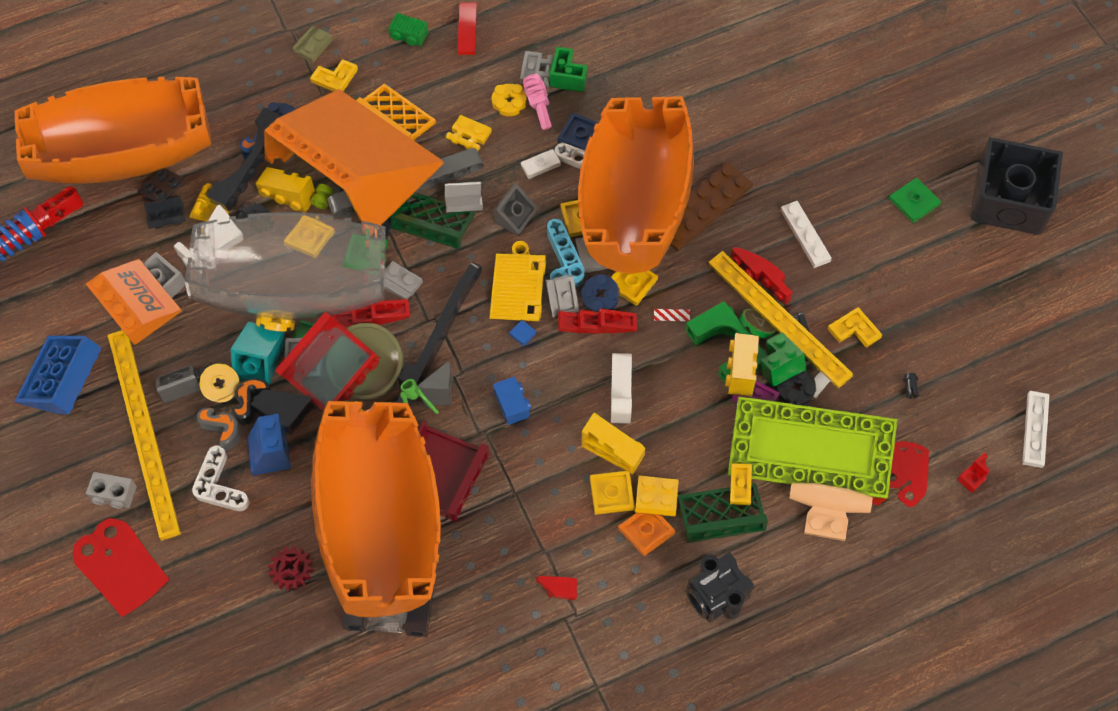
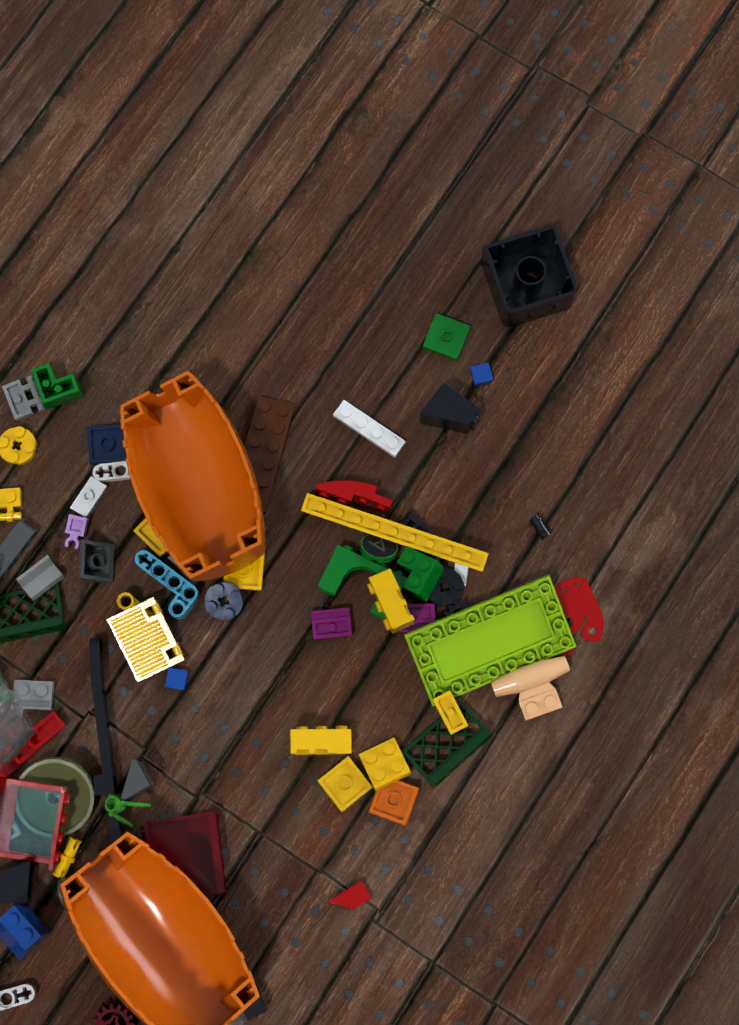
camera: 30 degrees left, 15 degrees up
(512, 400) = (208, 753): blue brick -> none
(517, 176) = (76, 527): none -> lavender plate
(538, 98) = (45, 431): bright pink gear -> none
(562, 295) = (191, 624): light grey plate -> none
(597, 322) = (236, 628): red slope -> none
(621, 388) = (295, 681): white beam -> none
(671, 315) = (297, 580): sticker -> none
(680, 361) = (331, 623): none -> magenta plate
(719, 588) = (483, 824): black piece -> none
(855, 323) = (461, 495): yellow plate -> none
(883, 252) = (450, 411): none -> black slope
(929, 243) = (481, 374): none -> blue tile
(975, 474) = (635, 579): red slope -> none
(1035, 429) = (663, 506): white plate -> none

